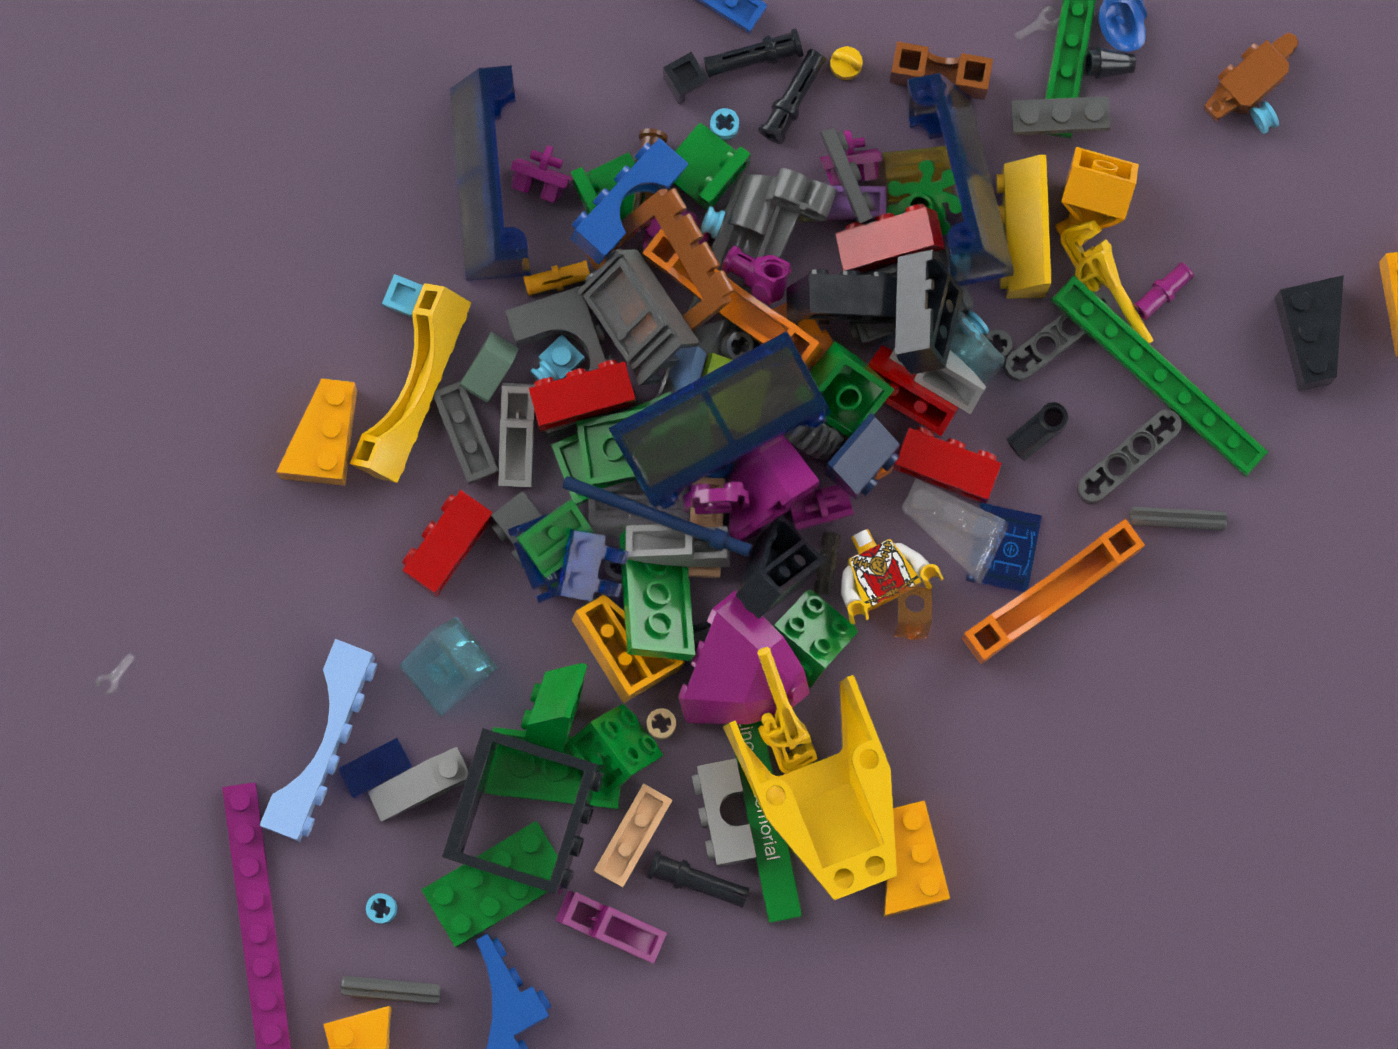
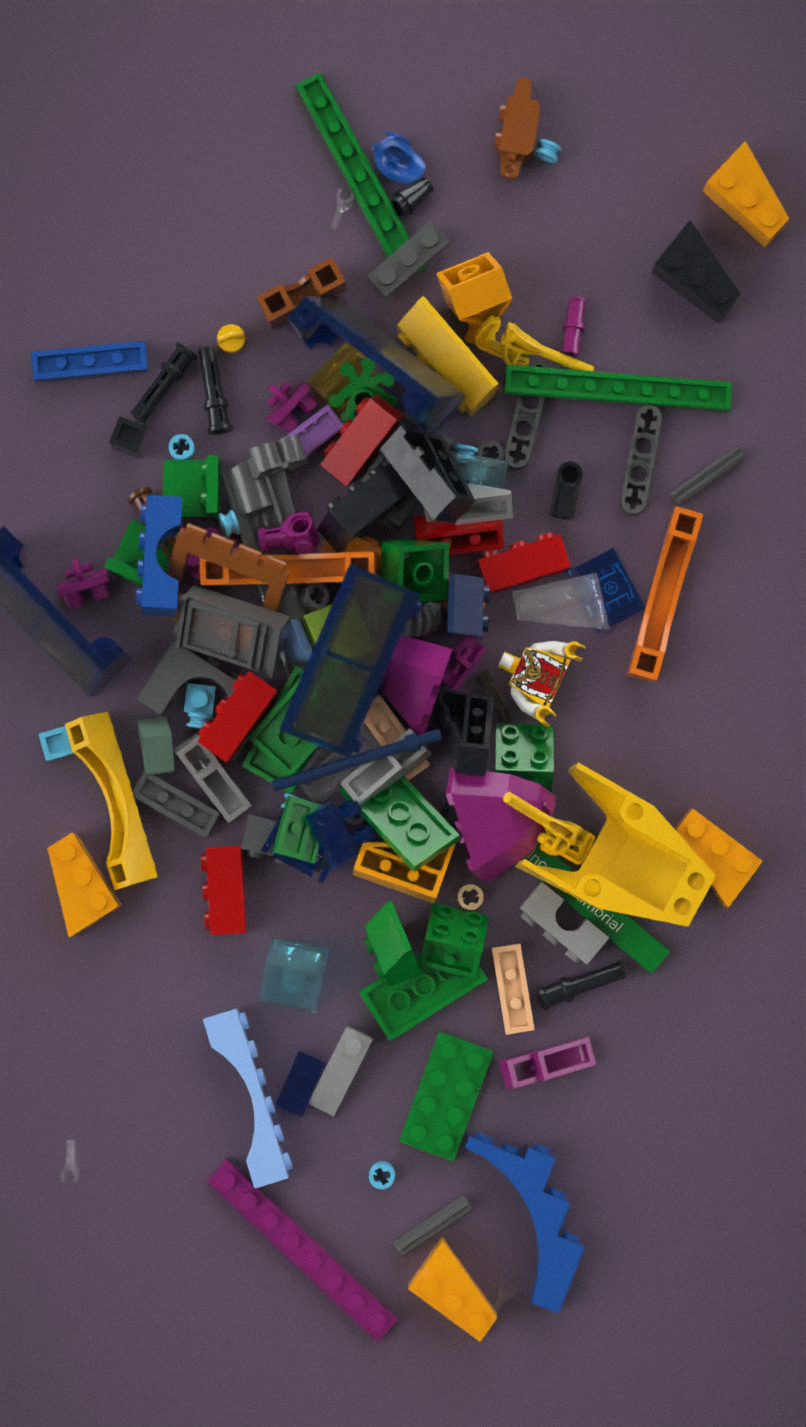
camera: 35 degrees left, 5 degrees up
(471, 796) = (382, 1049): black window -> none
(556, 278) = (152, 647): light orange pin -> none
(715, 500) = (381, 723): magenta plate -> none
(848, 174) = (297, 417): dark grey plate -> none
(914, 624) = (589, 692): clear orange bracket -> none

